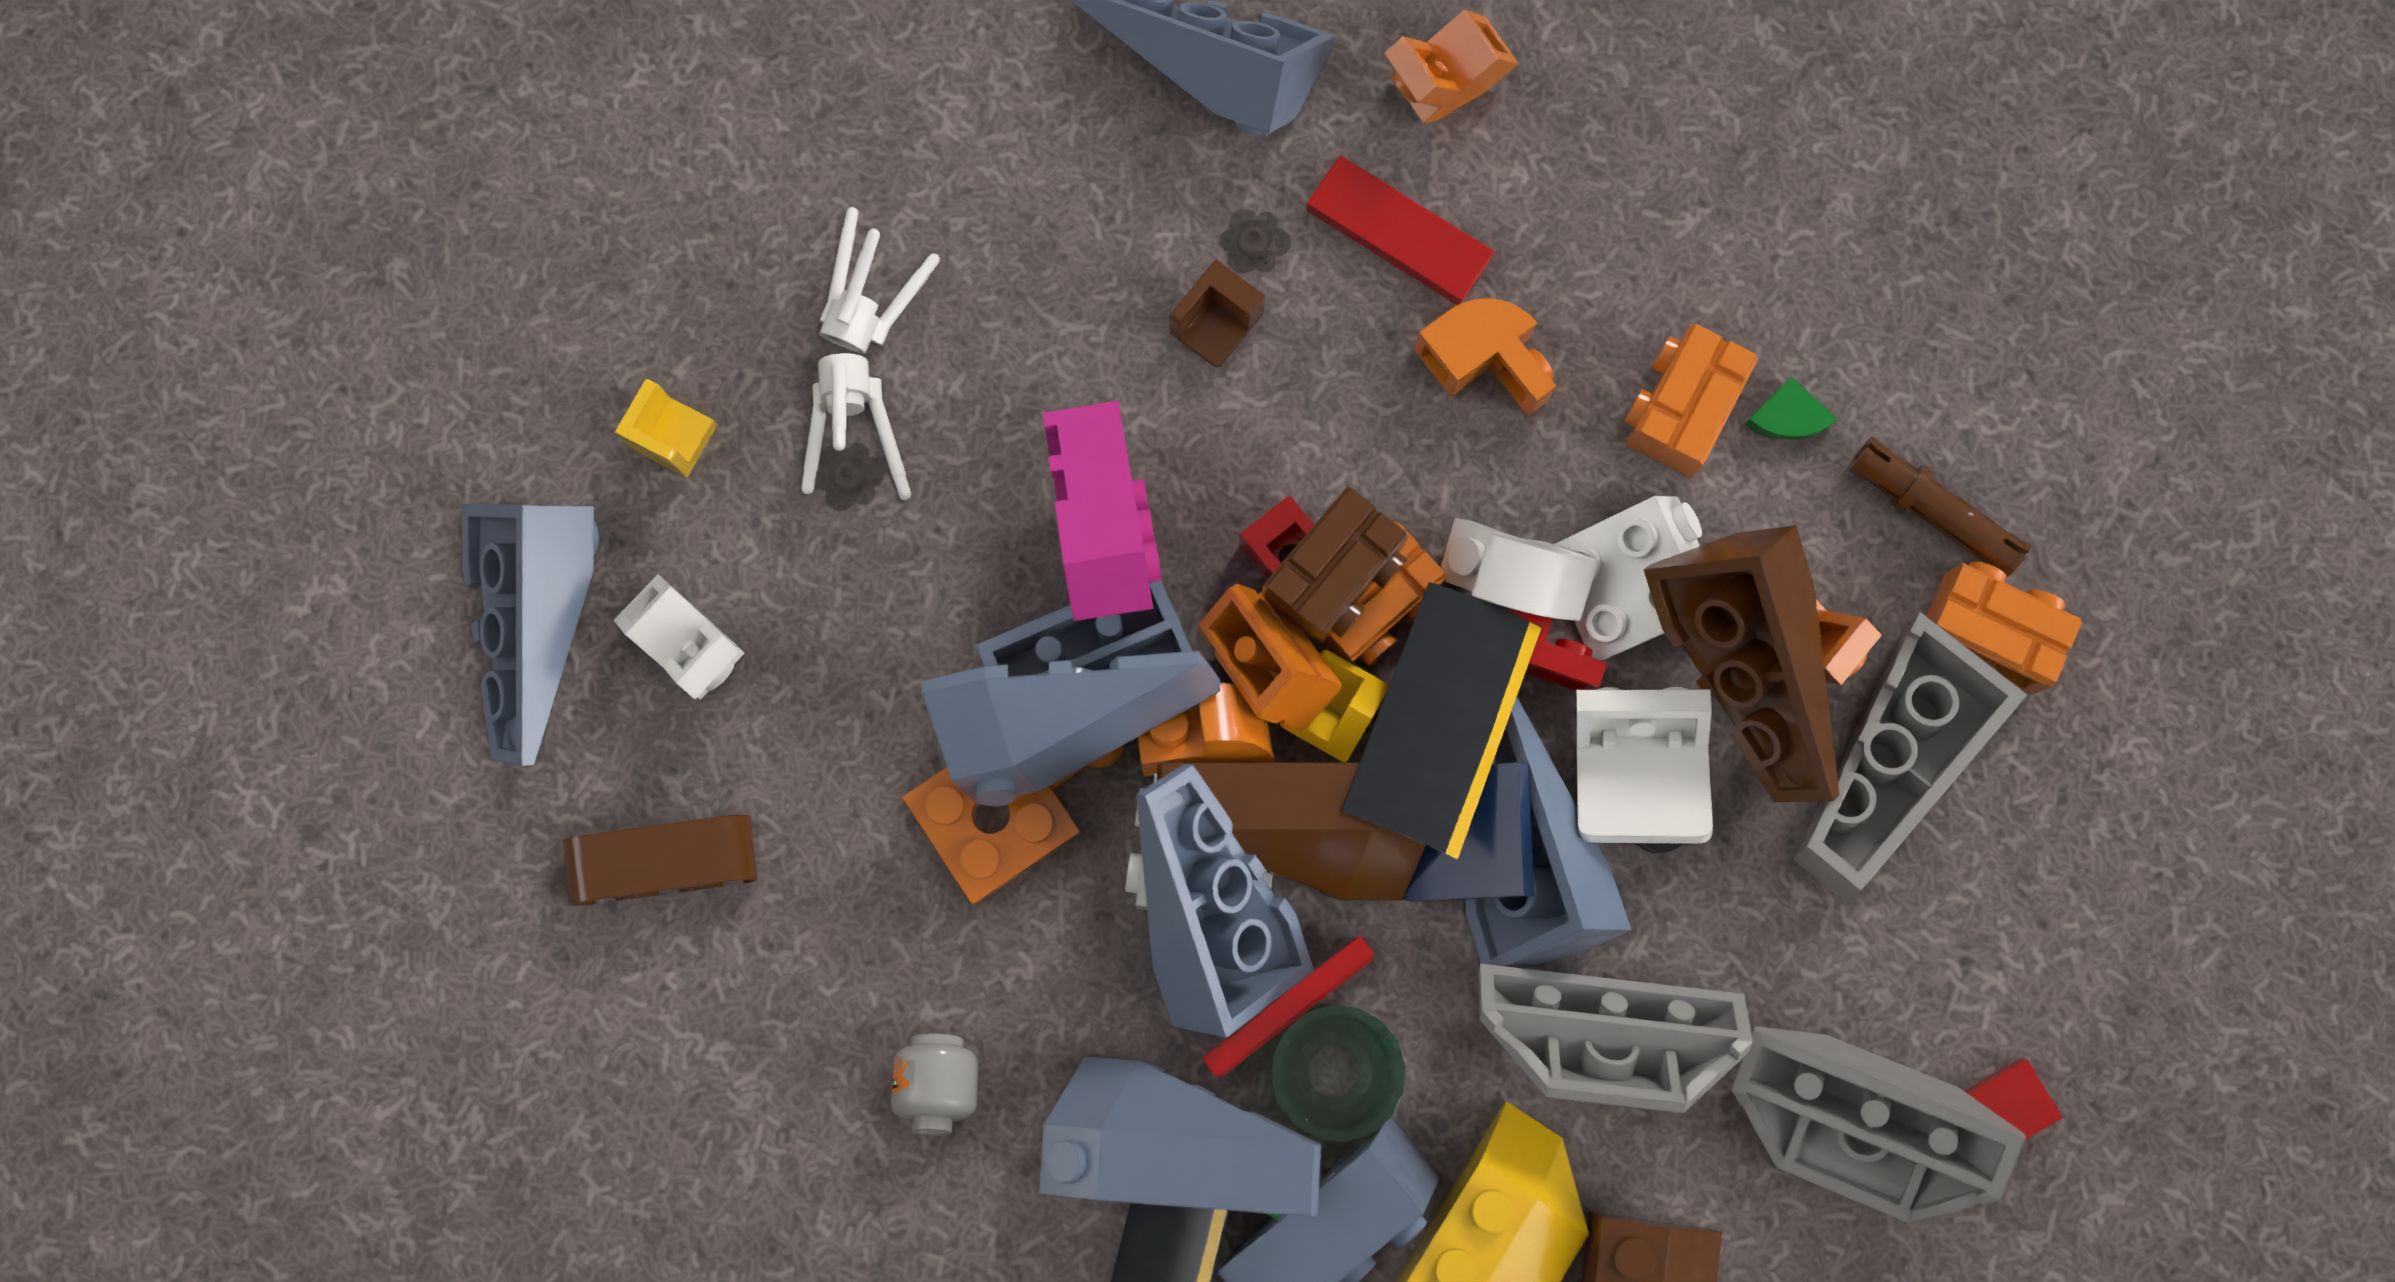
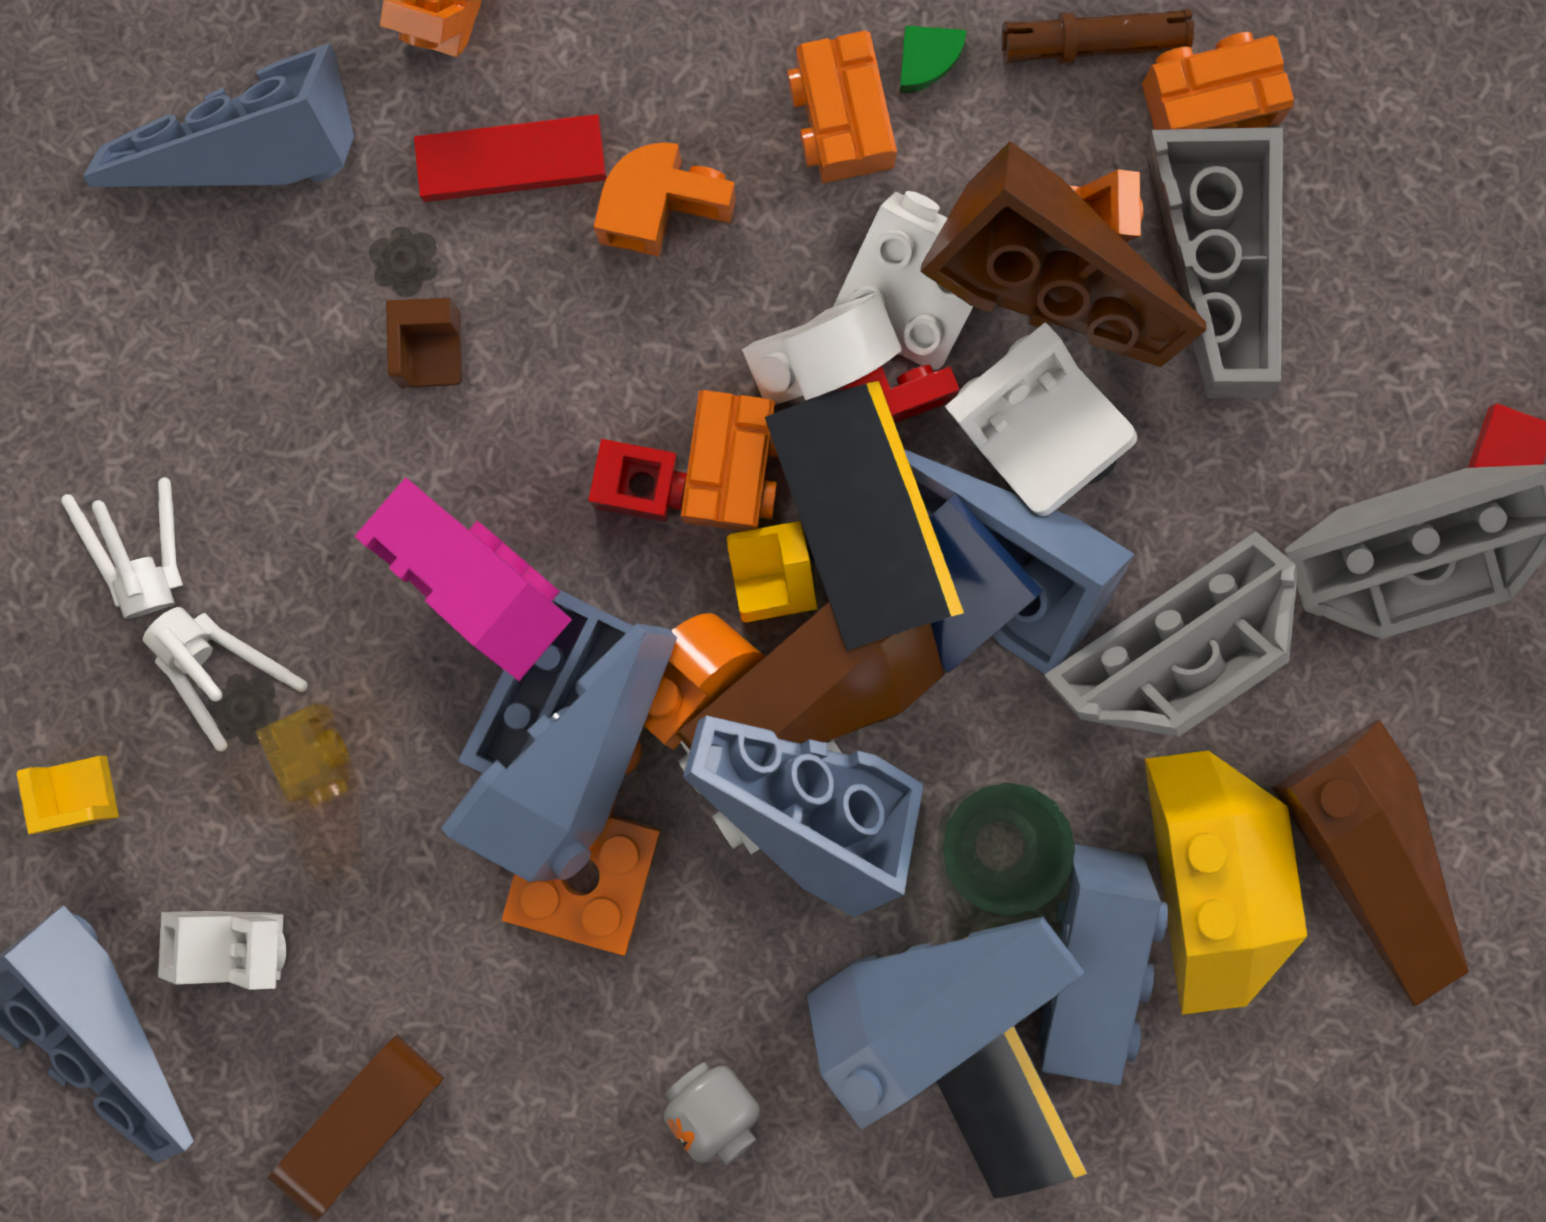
camera: 35 degrees left, 5 degrees up
(865, 548) = (307, 755): none -> clear yellow brick
(1268, 658) = (691, 578): orange brick -> none
(1288, 1007) = (930, 825): red tile -> none
(1336, 566) = (684, 465): reddish brown brick -> none

